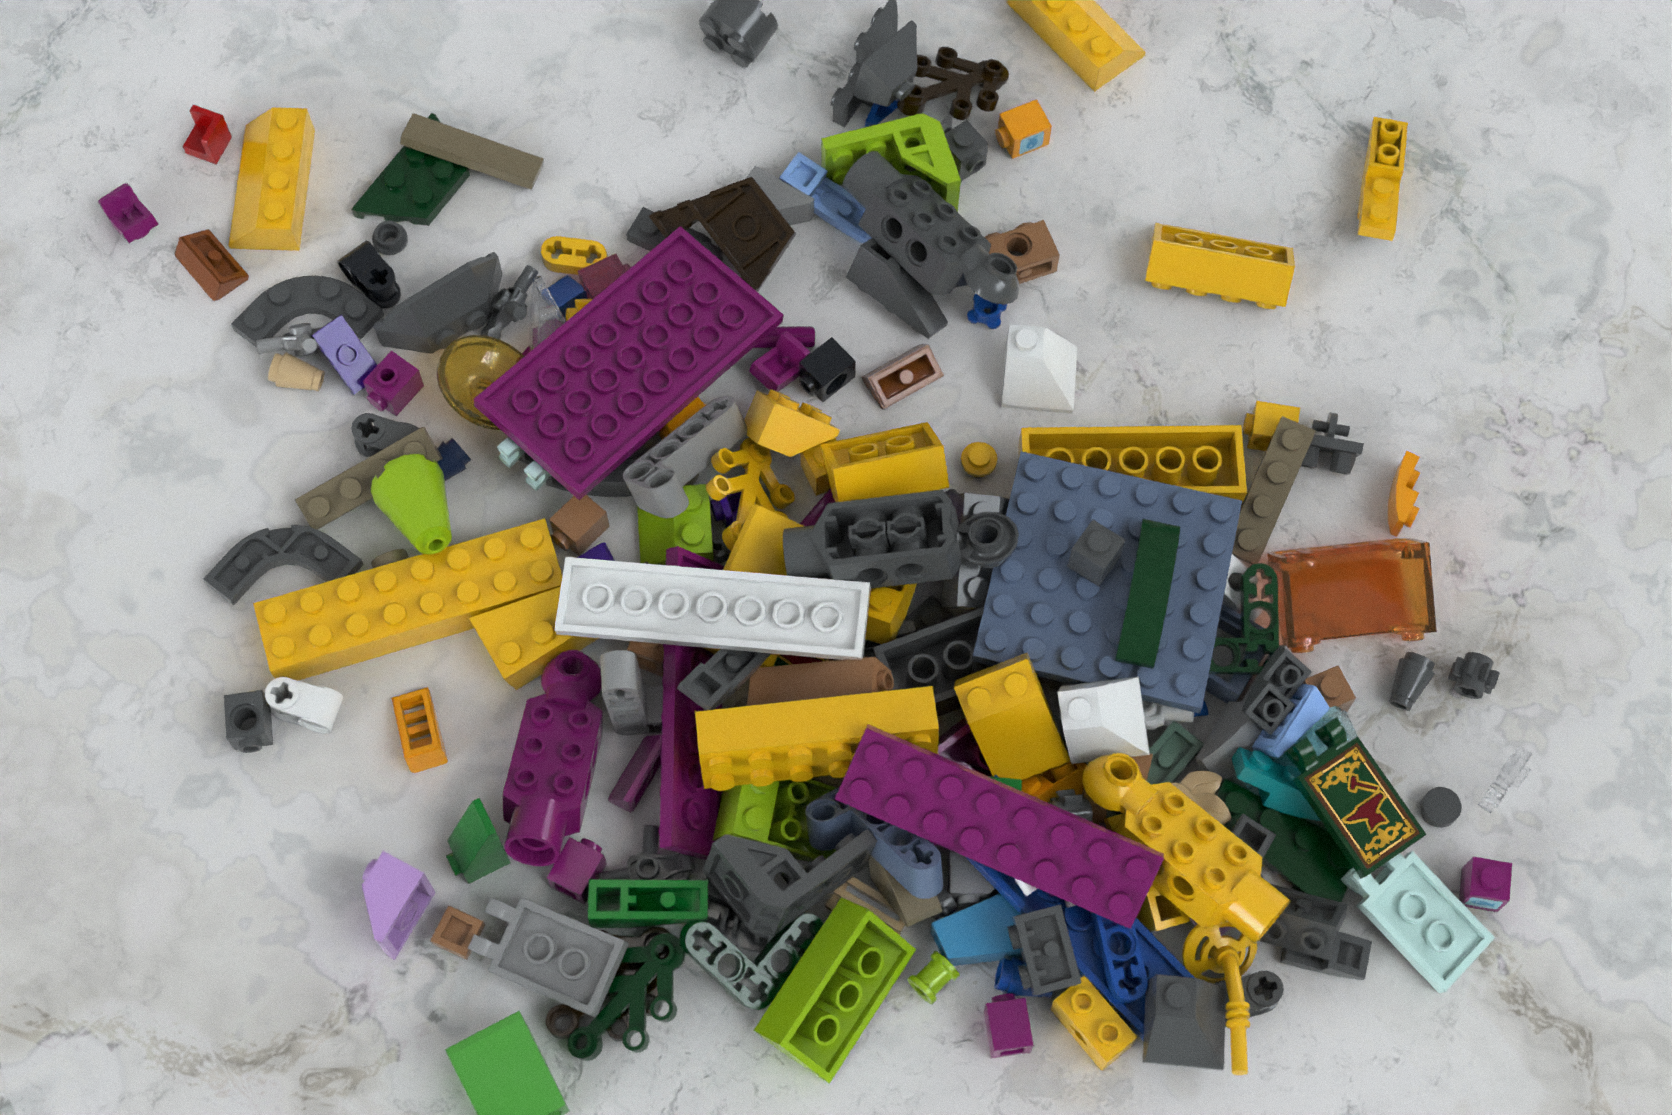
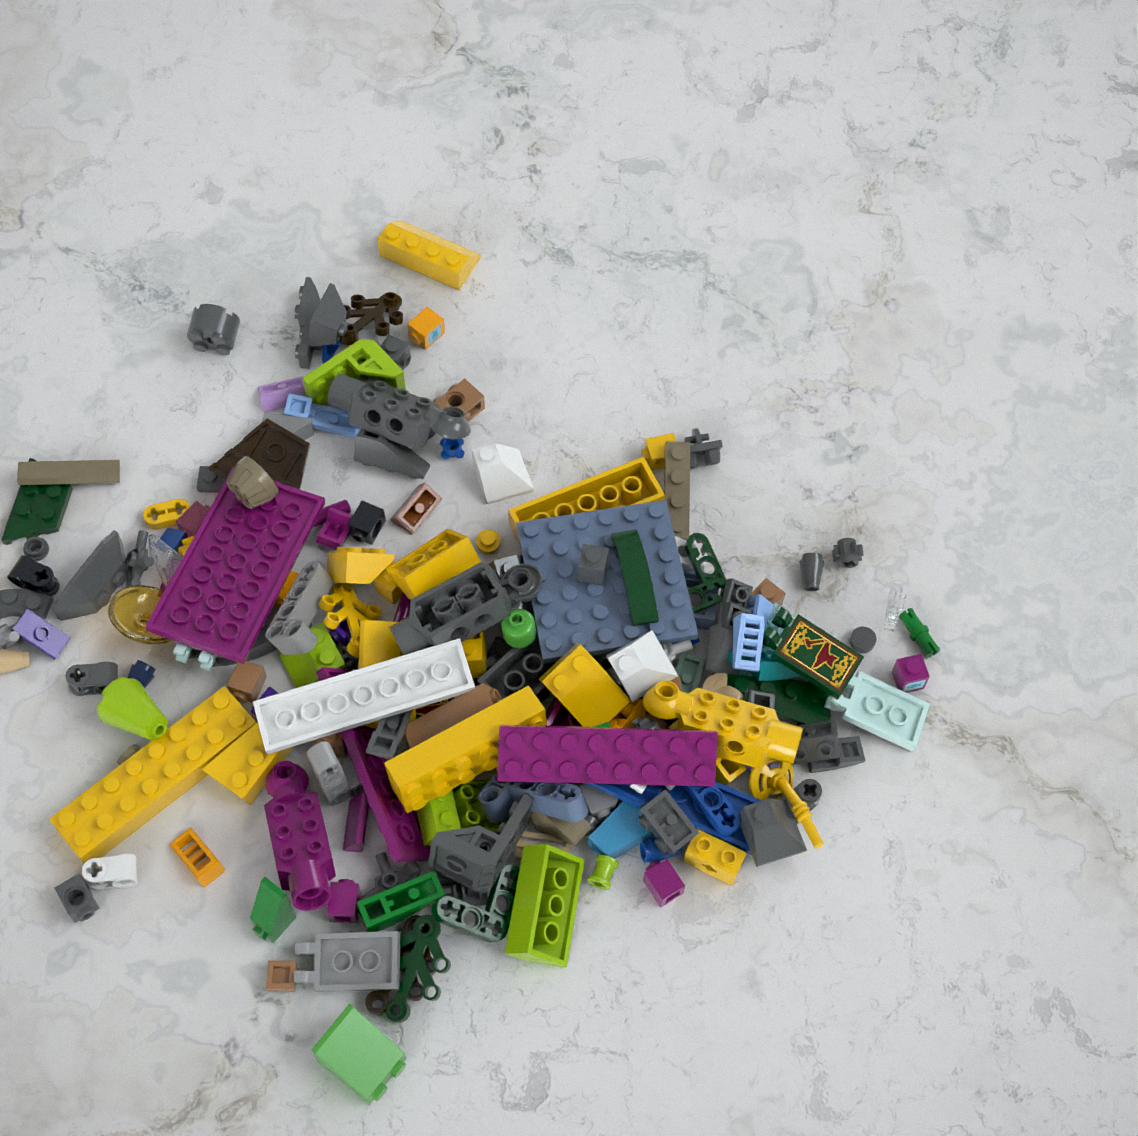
camera: 25 degrees left, 5 degrees down
(275, 548) = (42, 781): dark grey plate -> none
(354, 485) = (85, 714): dark tan plate -> none
(393, 384) = (80, 641): magenta brick -> none
(394, 900) = (232, 969): lavender slope -> none
(690, 260) = (251, 483): none -> dark tan piece
(781, 145) = (275, 395): none -> lavender slope
(957, 600) = (518, 628): none -> bright green head
(1220, 266) = (585, 367): yellow slope -> none
(1254, 741) = (739, 641): none -> light blue slope
(1354, 591) = (756, 530): clear orange windscreen -> none
(1382, 179) = (660, 279): yellow slope -> none
(1402, 497) = (757, 462): light orange slope -> none
(1526, 830) = (919, 633): none -> green pin

